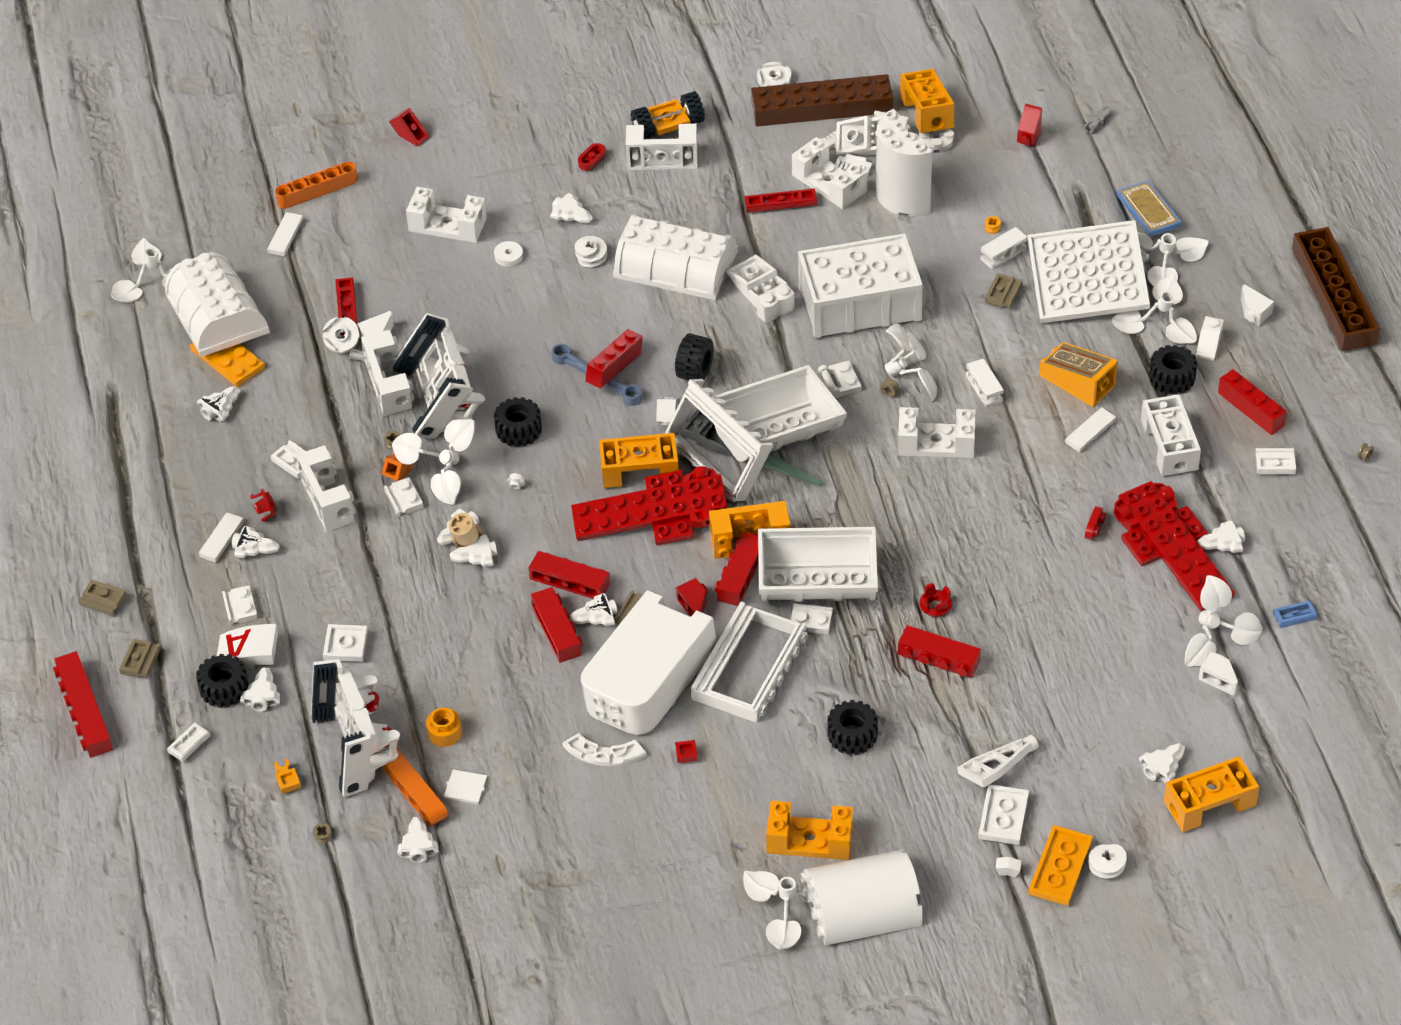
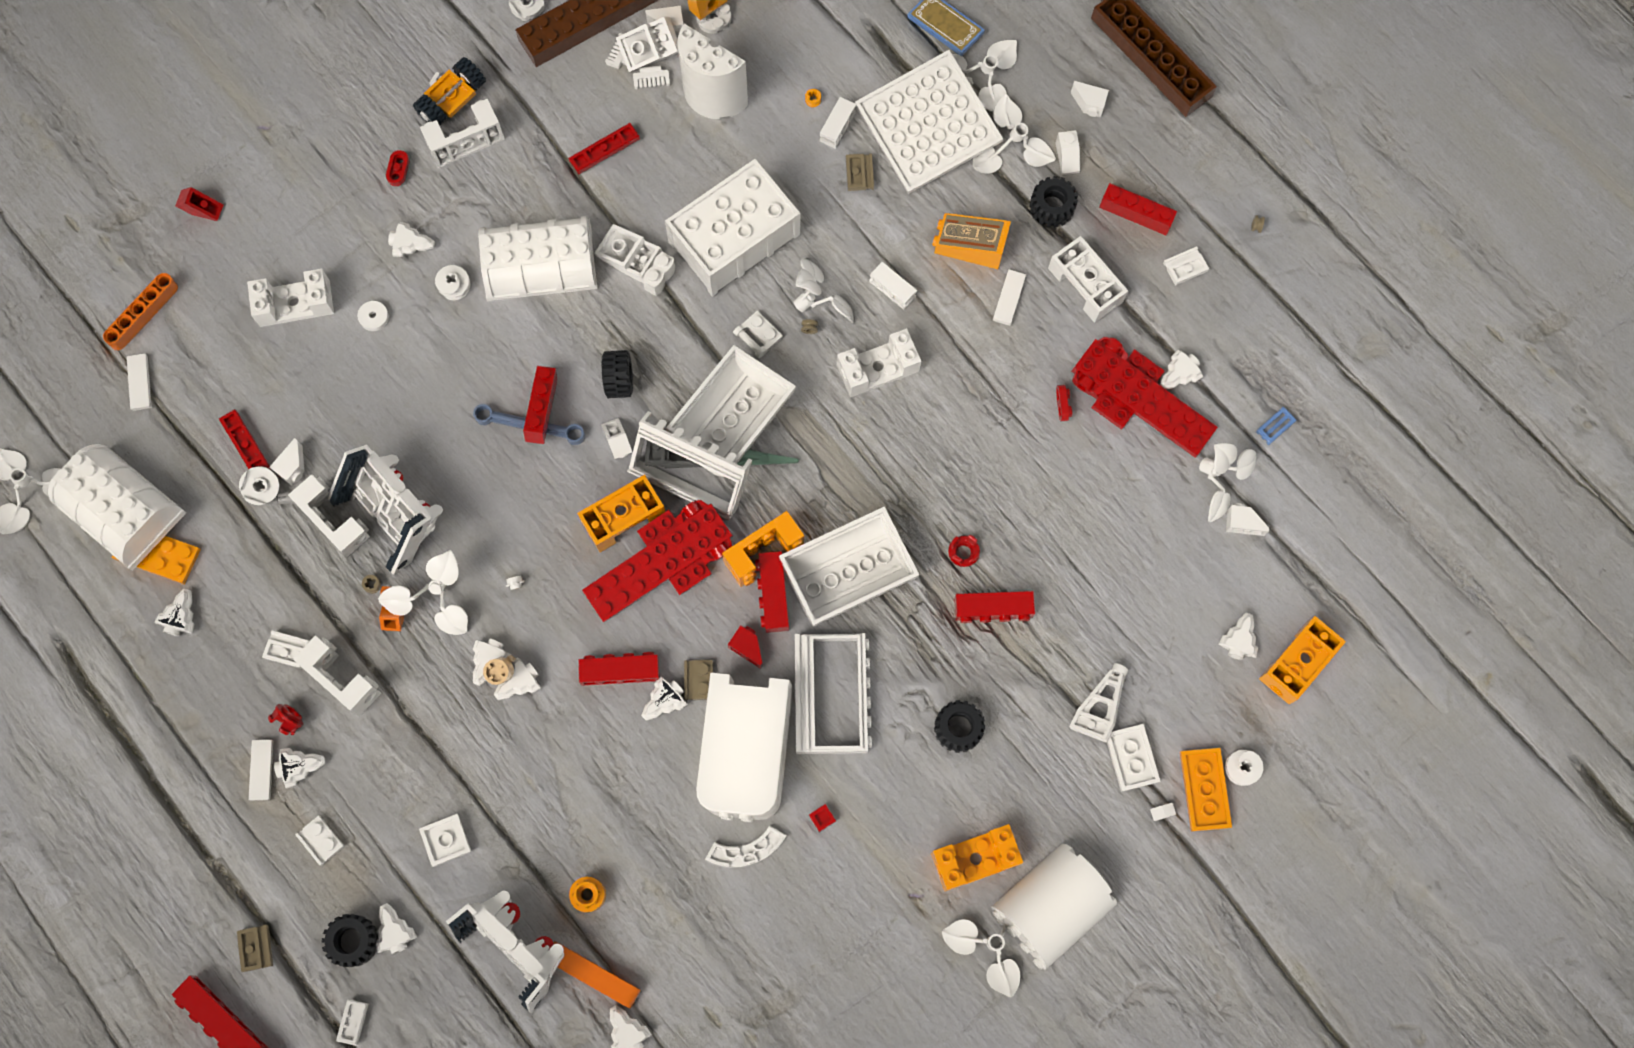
camera: 30 degrees left, 25 degrees up
(102, 597) = (179, 894): dark tan plate -> none
(250, 644) = (353, 889): white slope -> none
(286, 777) = (468, 1019): light orange plate -> none
(403, 497) = (415, 645): white plate -> none
(465, 787) = (638, 947): white piece -> none
(508, 425) = (477, 501): black tyre -> none
(556, 625) = (634, 731): red brick -> none
(813, 168) = (618, 97): white plate -> none
(815, 617) = (862, 618): white plate -> none

